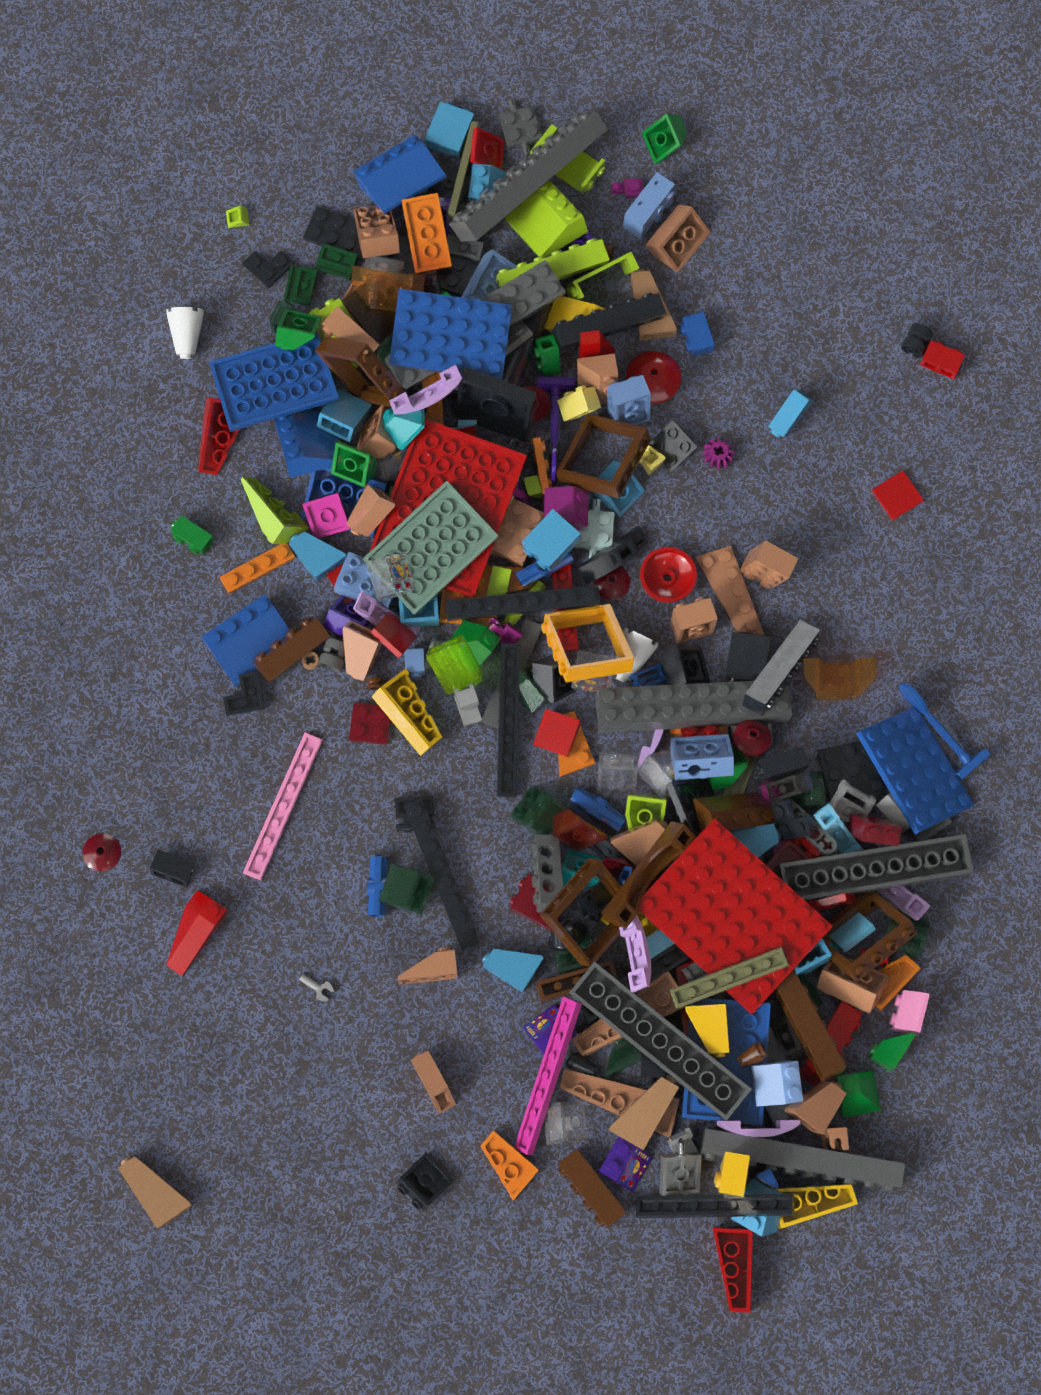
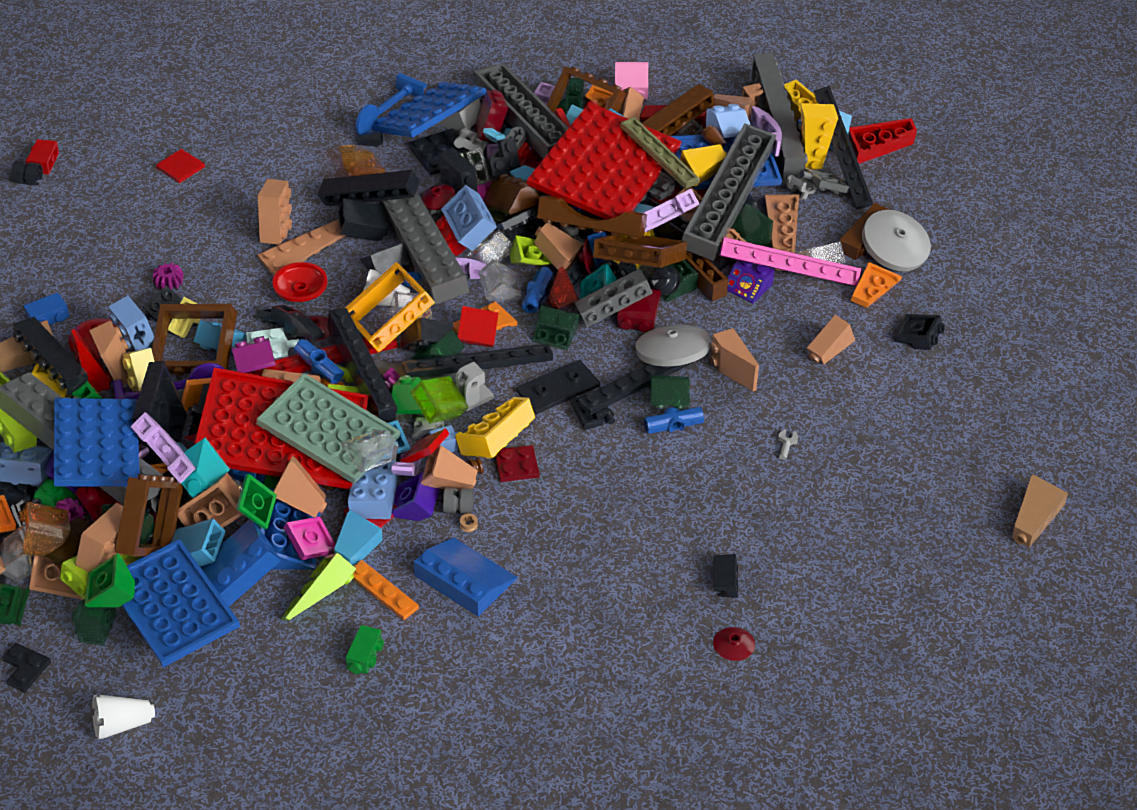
camera: 105 degrees left, 30 degrees down
(196, 927) = (771, 541): red wedge -> none
(215, 437) = (232, 658): red wedge -> none
(250, 698) = (527, 558): black plate -> none
(282, 806) = (625, 509): bright pink tile -> none
(290, 648) = (463, 534): reddish brown brick -> none
(300, 285) = (43, 629): dark green plate -> none
(456, 918) = (673, 345): none -> light grey dish
(459, 791) = (558, 386): none -> black plate
(512, 966) = (704, 311): dark azure slope -> none
(551, 540) = (294, 346): dark azure brick -> none
(580, 1211) = (896, 240): none -> light grey dish
(625, 1164) = (833, 219): dark purple slope -> none
(645, 1113) = (787, 203): medium nougat slope -> none
(693, 620) = (342, 249): nougat brick -> none
(790, 413) = (116, 235): dark azure slope -> none
(889, 700) = (371, 139): none -> black cone
(890, 1051) = (665, 83): green slope -> none

